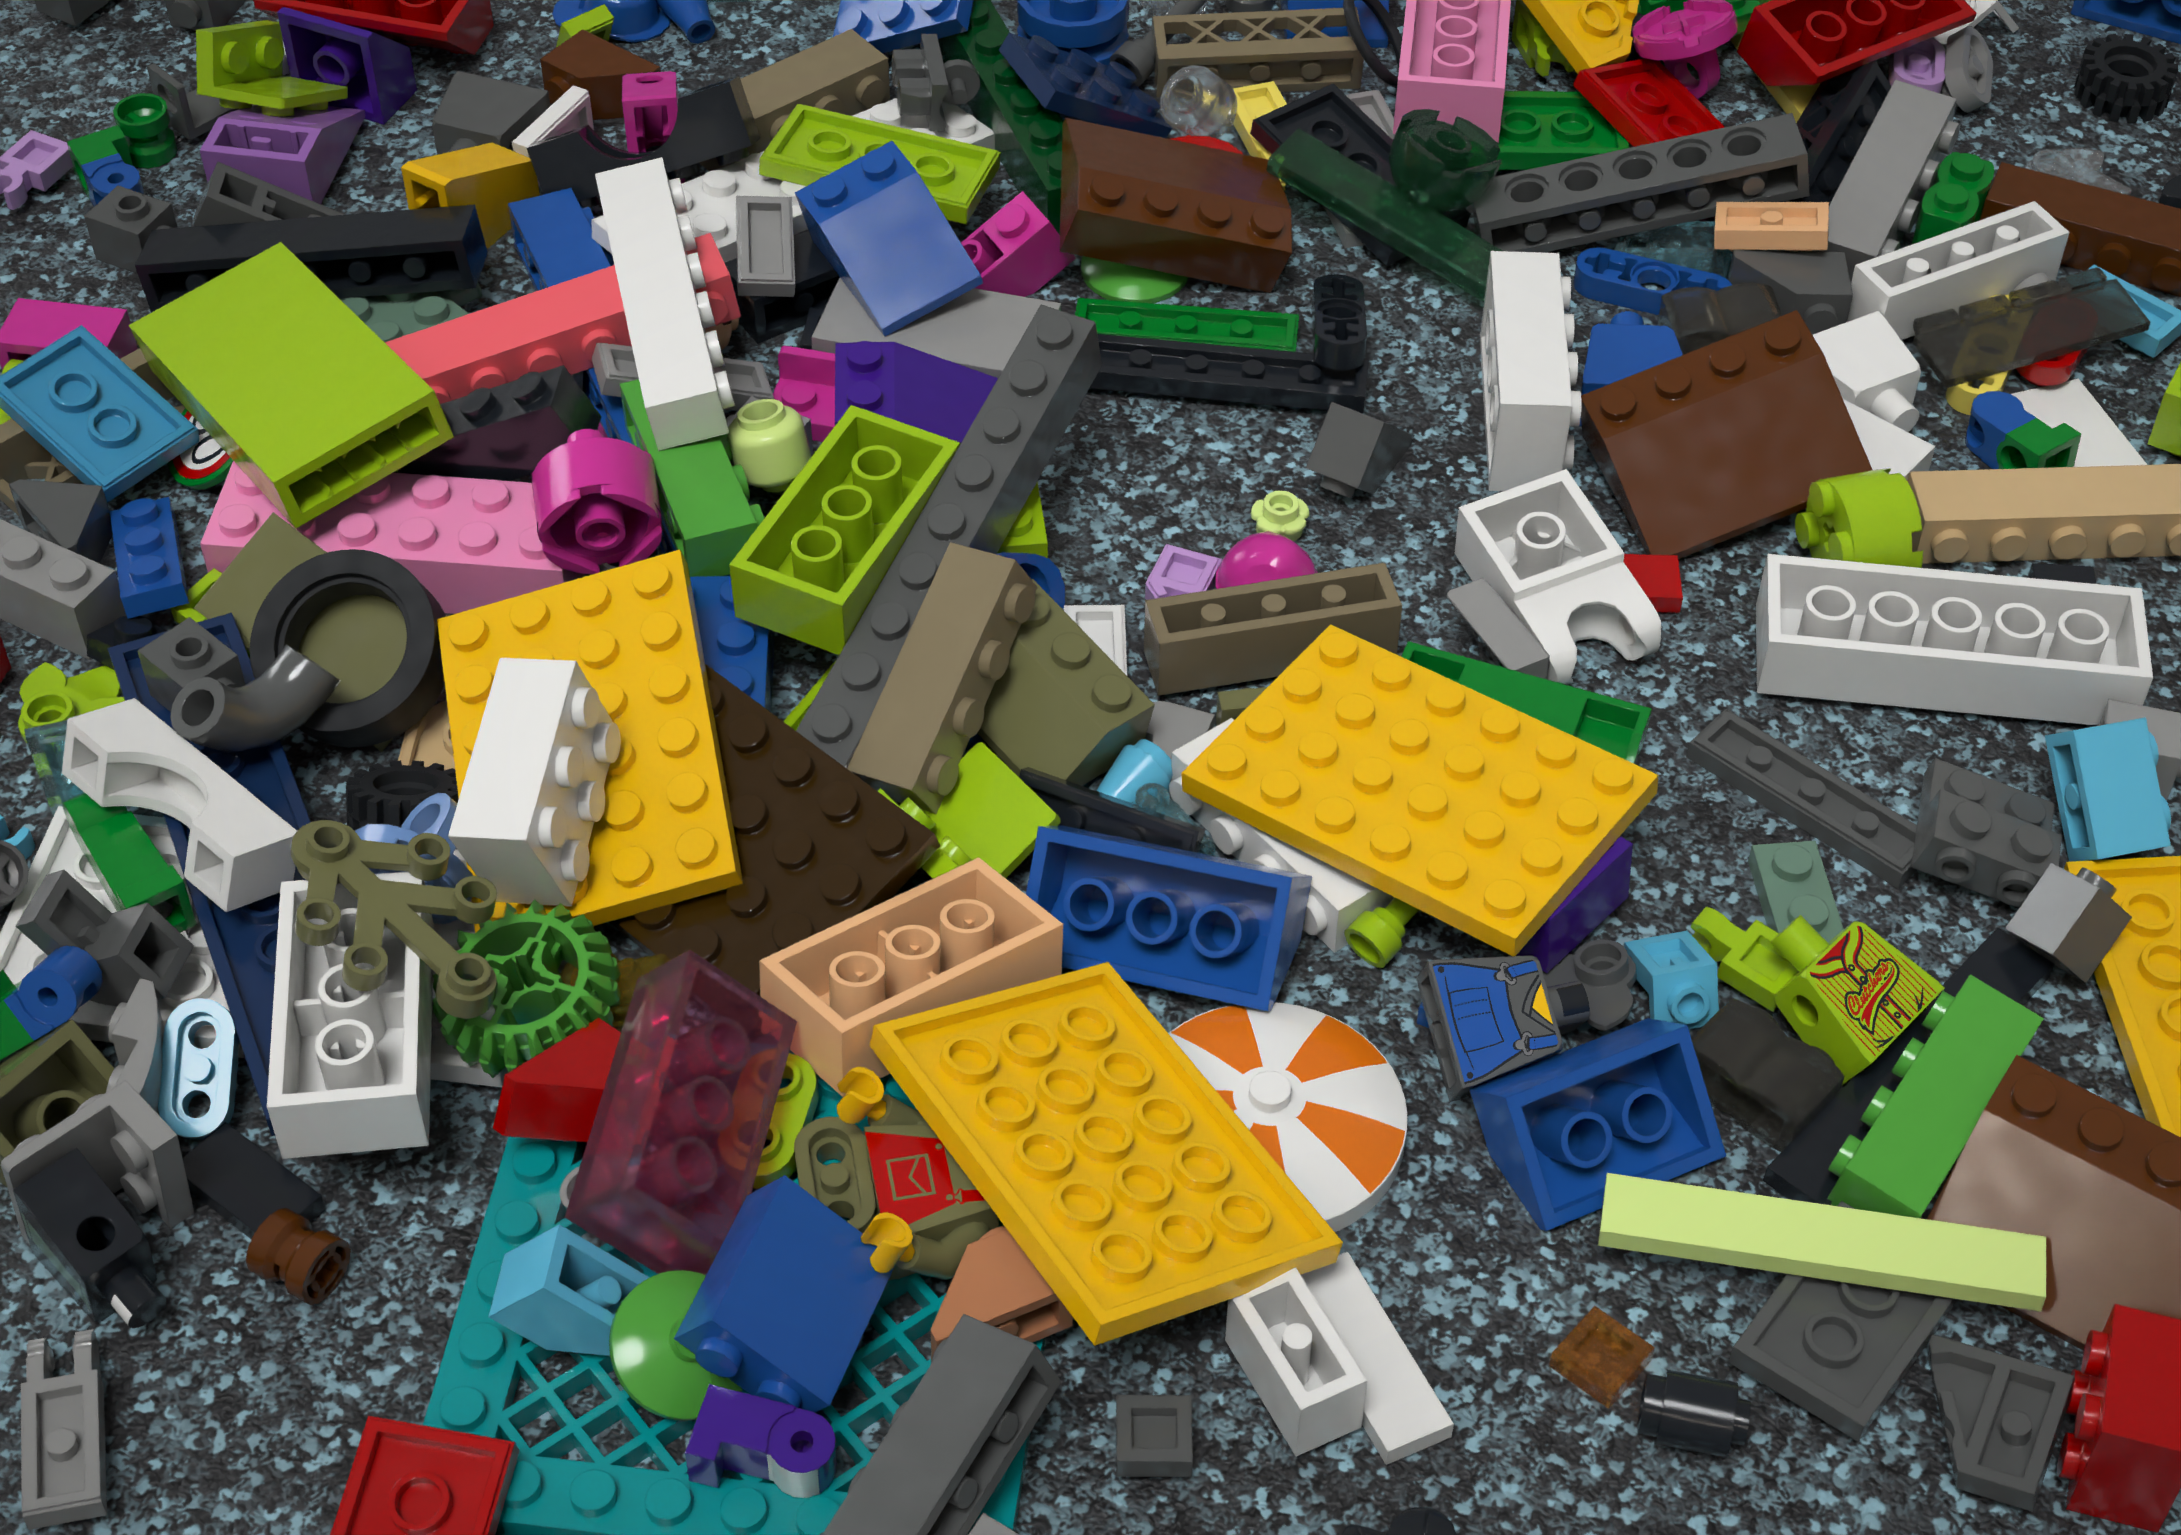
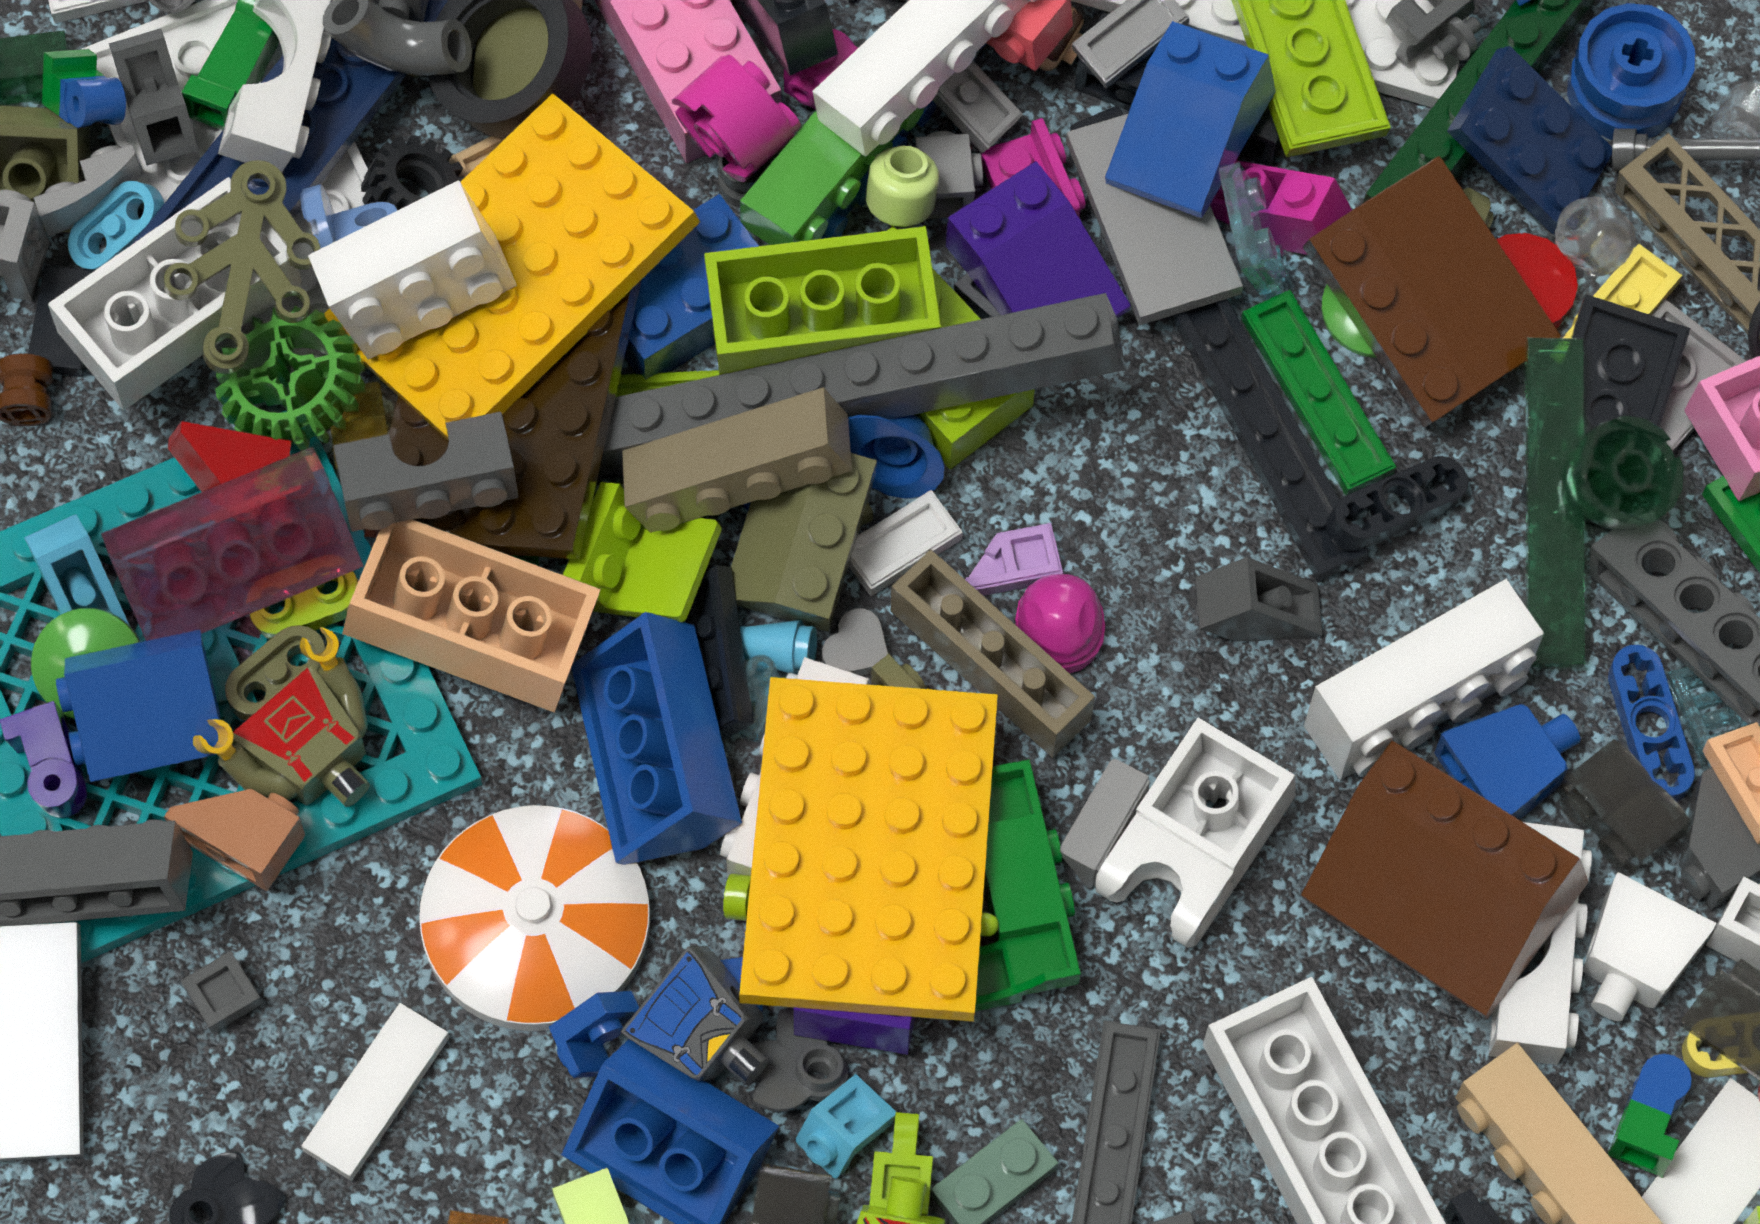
camera: 55 degrees right, 20 degrees up
(781, 858) = (388, 491): none -> dark grey arch
(1034, 266) = (1256, 251): none -> clear light blue plate
(1103, 1150) = (389, 824): yellow plate -> none
(1280, 514) = (1145, 600): yellowish green plate -> none
(1296, 1362) = (321, 1046): white brick -> none
(1439, 1104) = (589, 1026): none -> blue bracket
(1658, 579) = (1270, 902): red tile -> none
(1861, 519) = (1411, 1036): lime brick -> none

